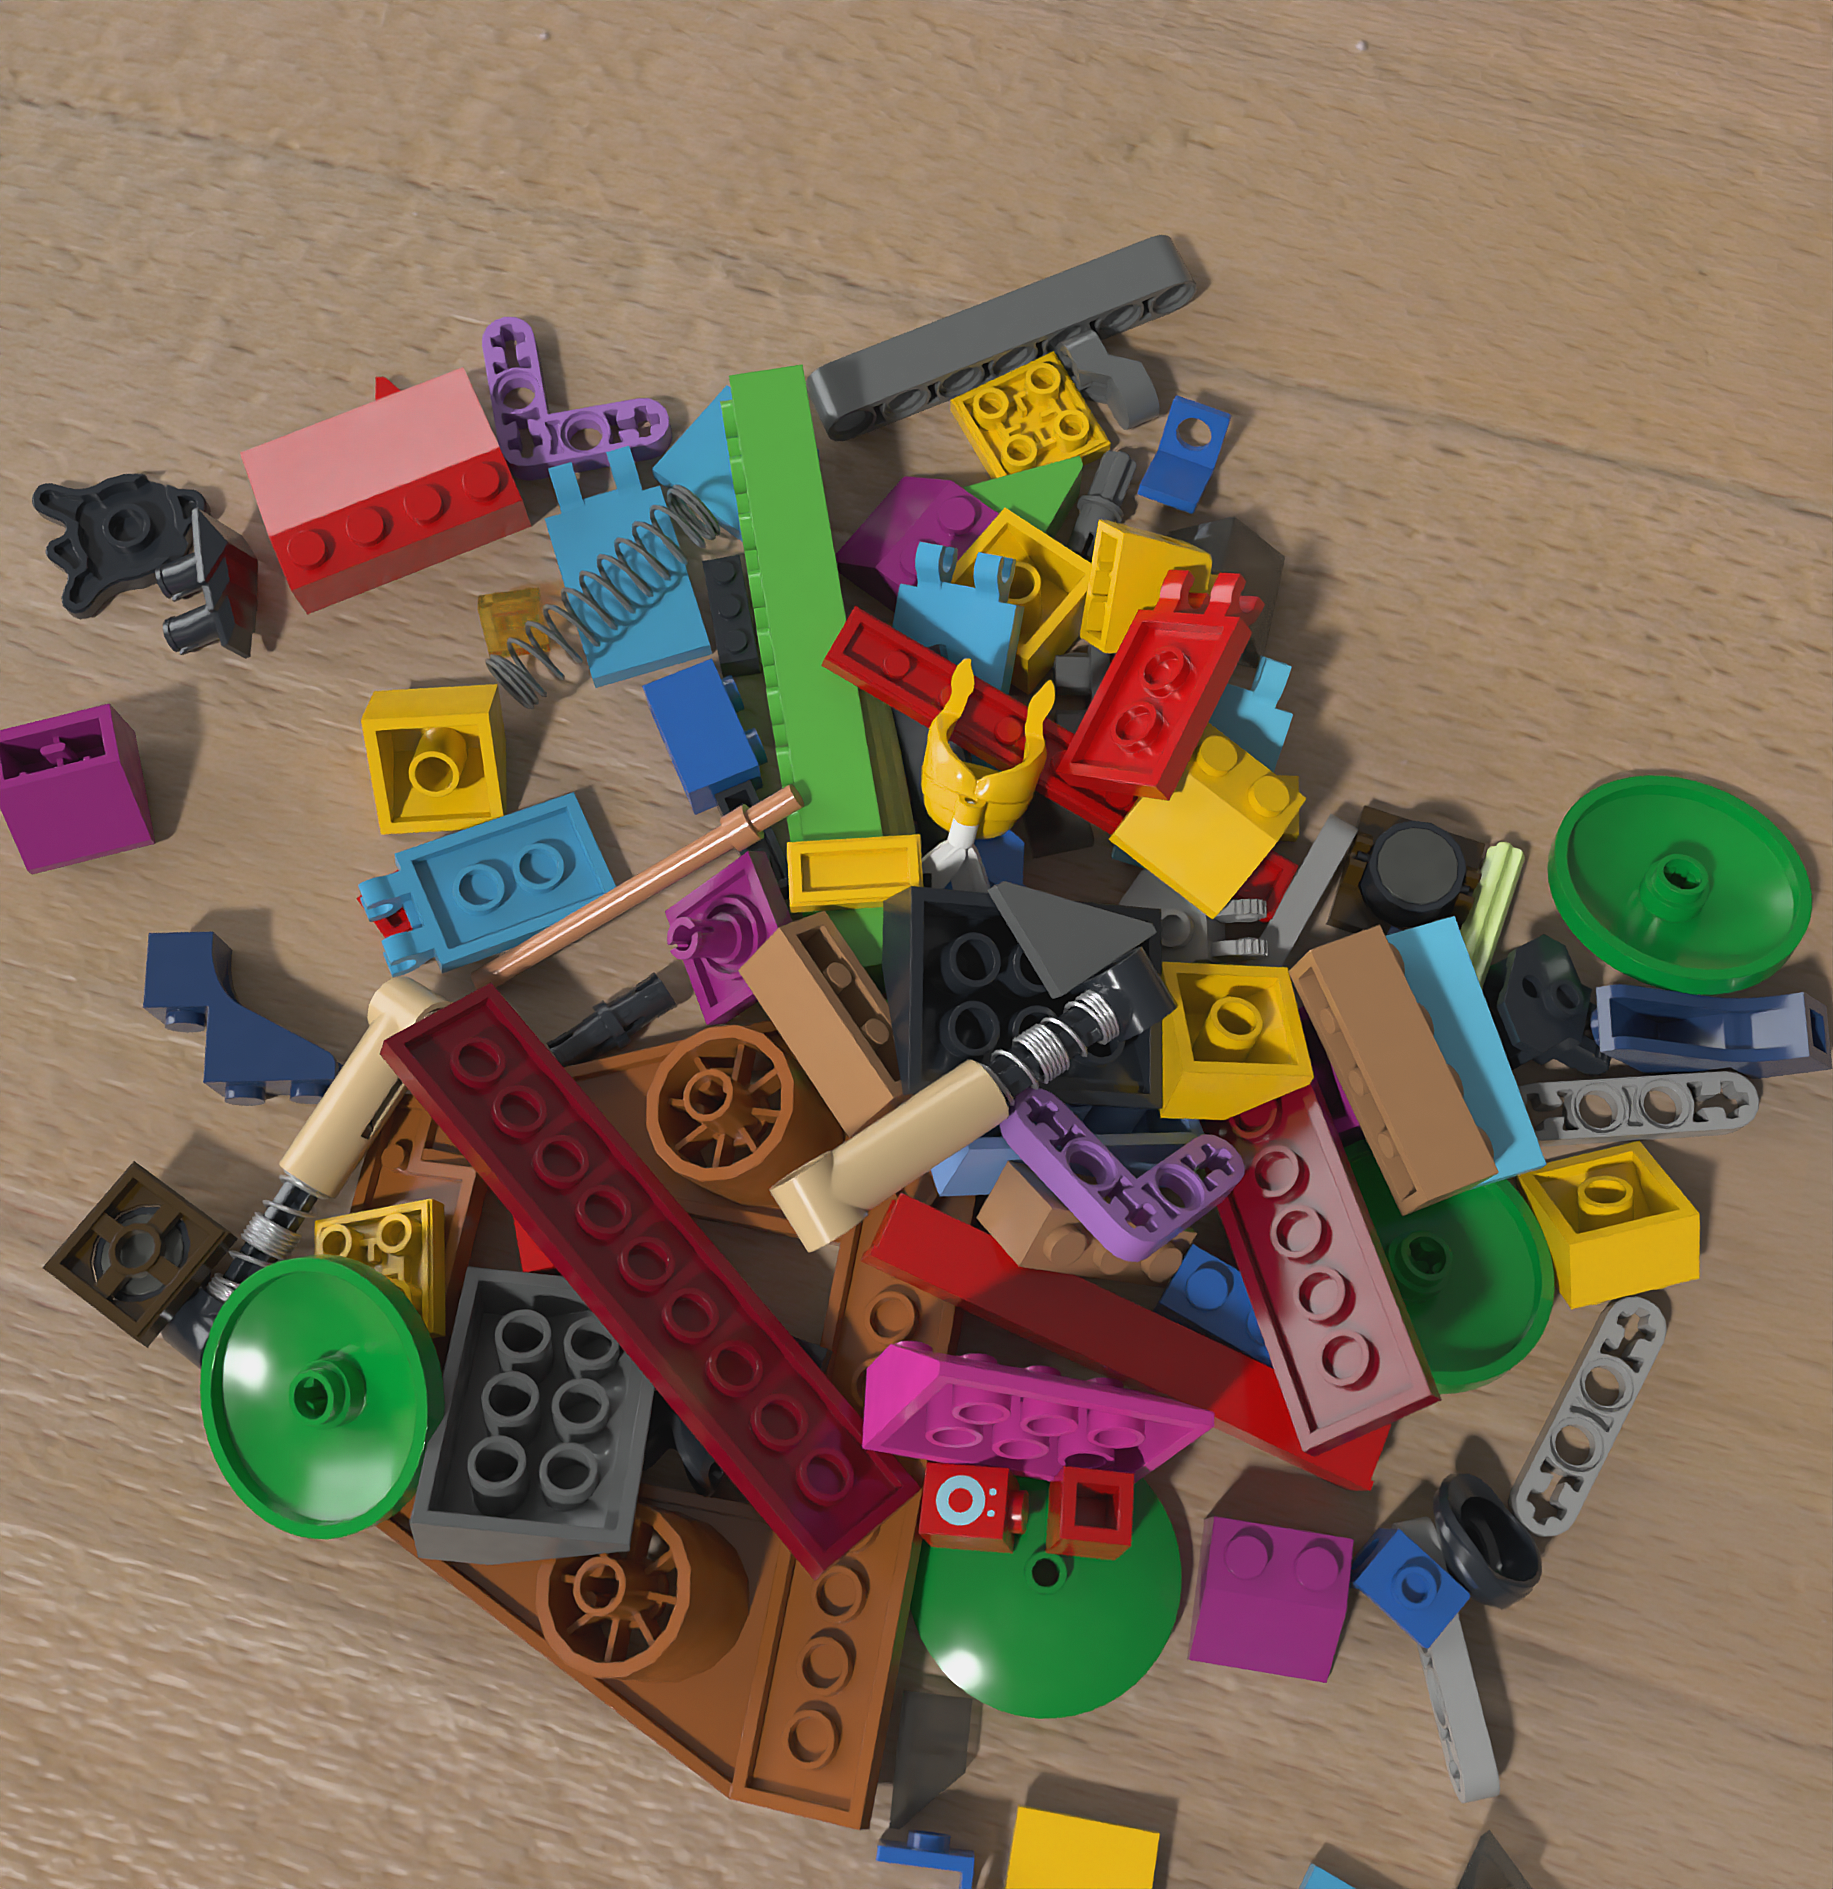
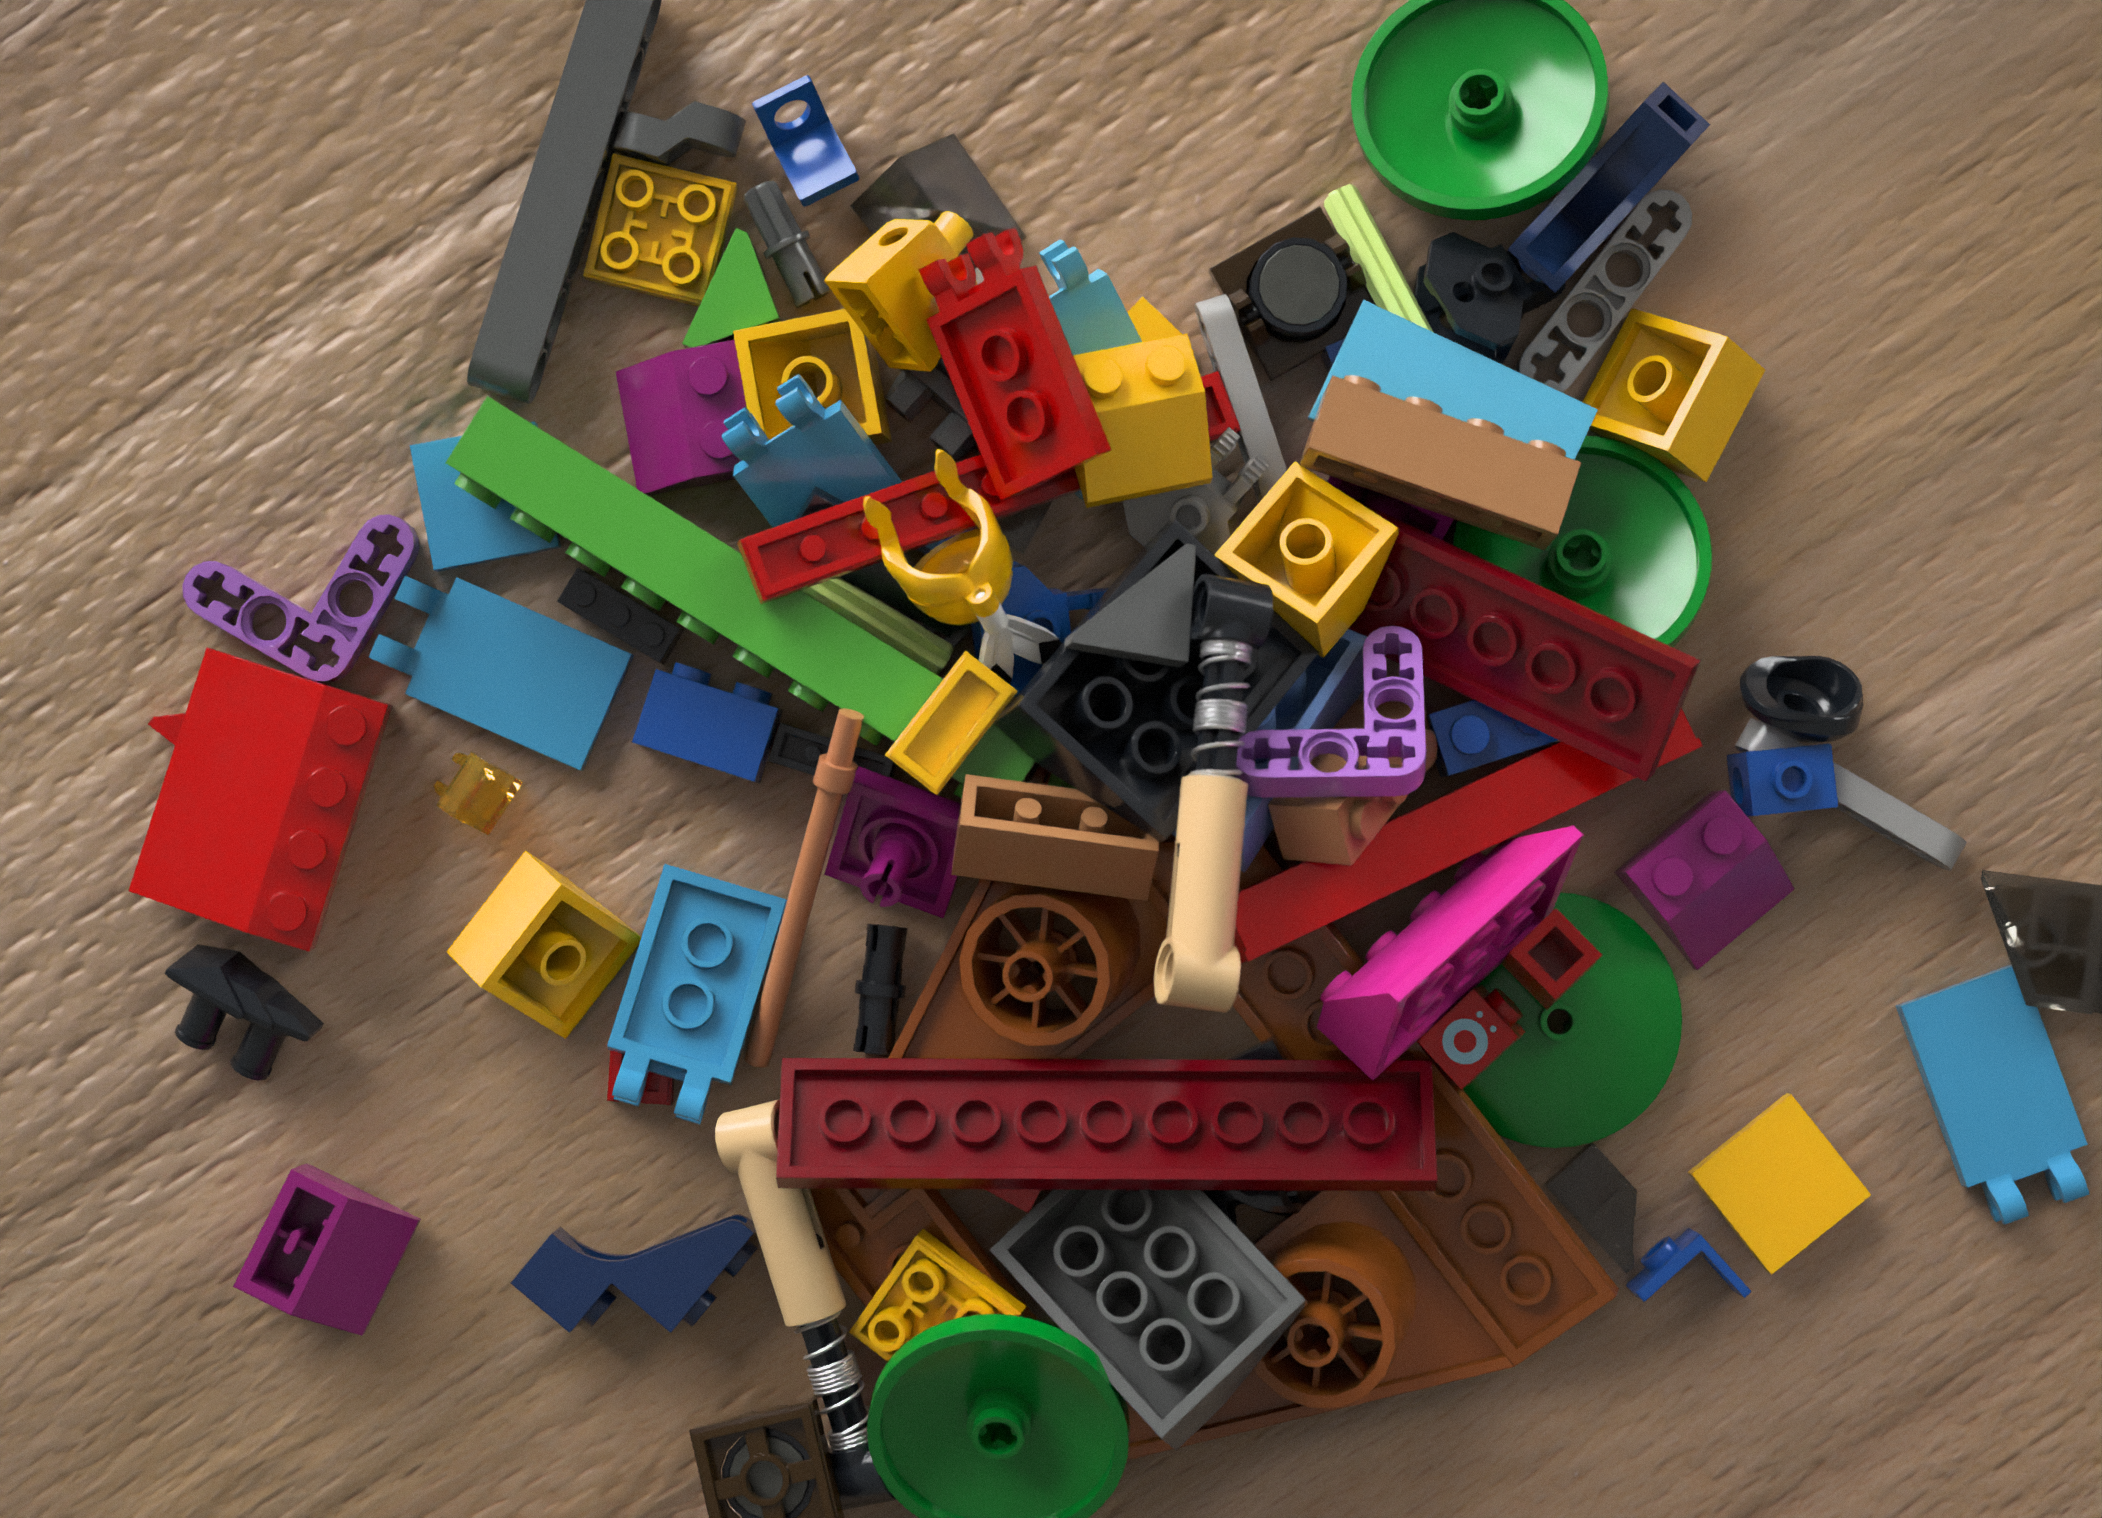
camera: 50 degrees left, 15 degrees up
(115, 535) = (112, 1043): black tile -> none
(515, 678) = (500, 581): dark grey piece -> none
(1596, 1421) = (1794, 534): light grey beam -> none

